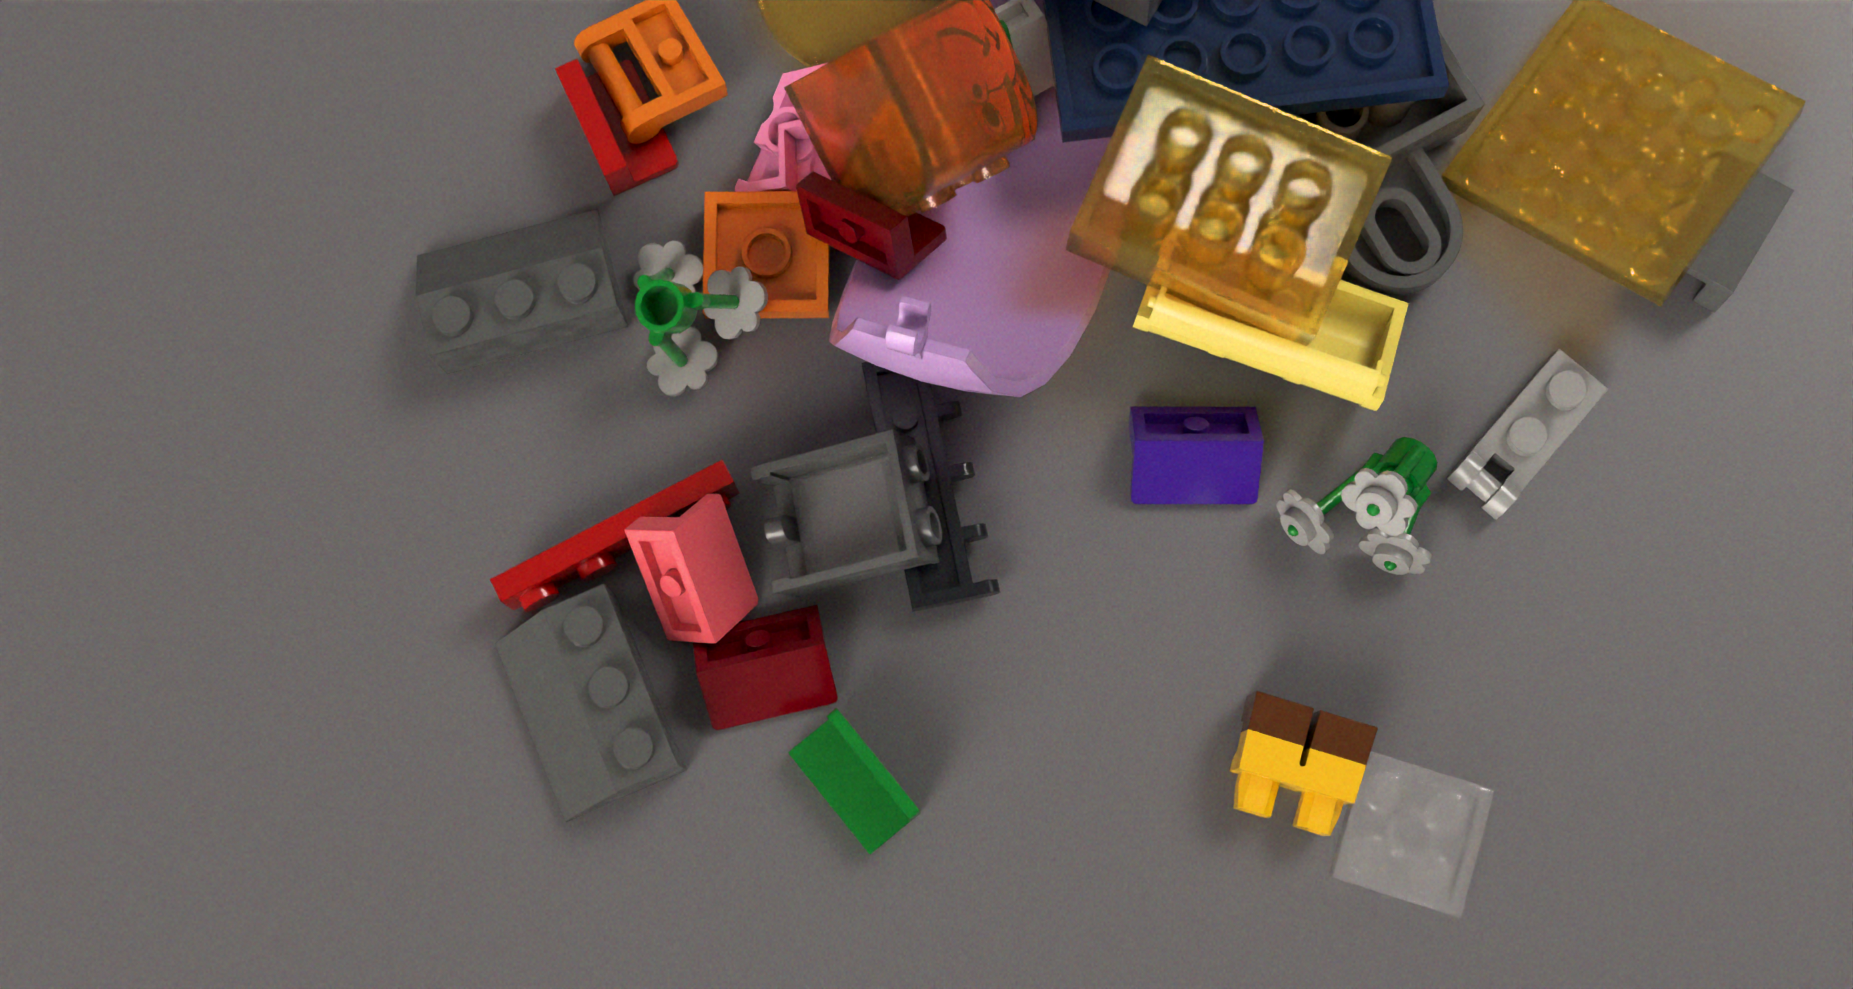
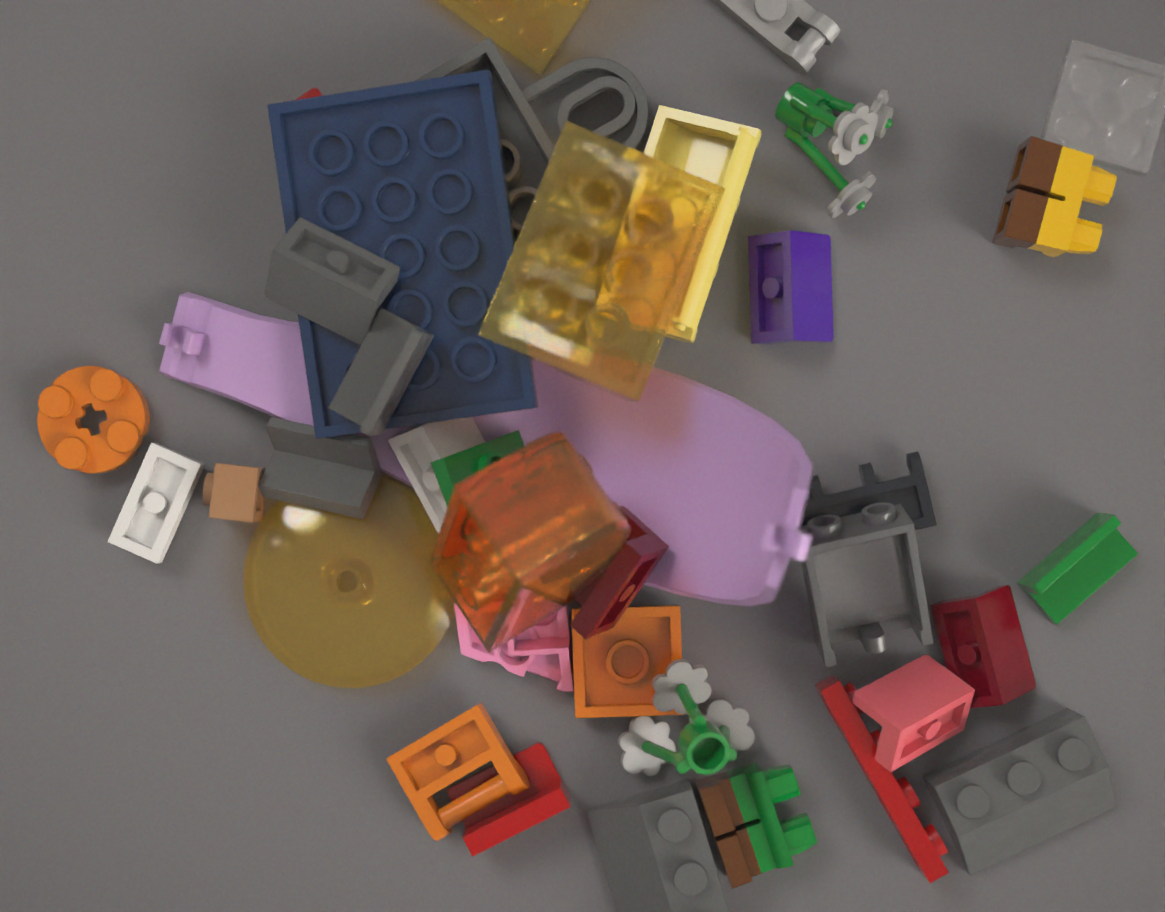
camera: 95 degrees left, 10 degrees up
(548, 392) = (746, 822): none -> green hips

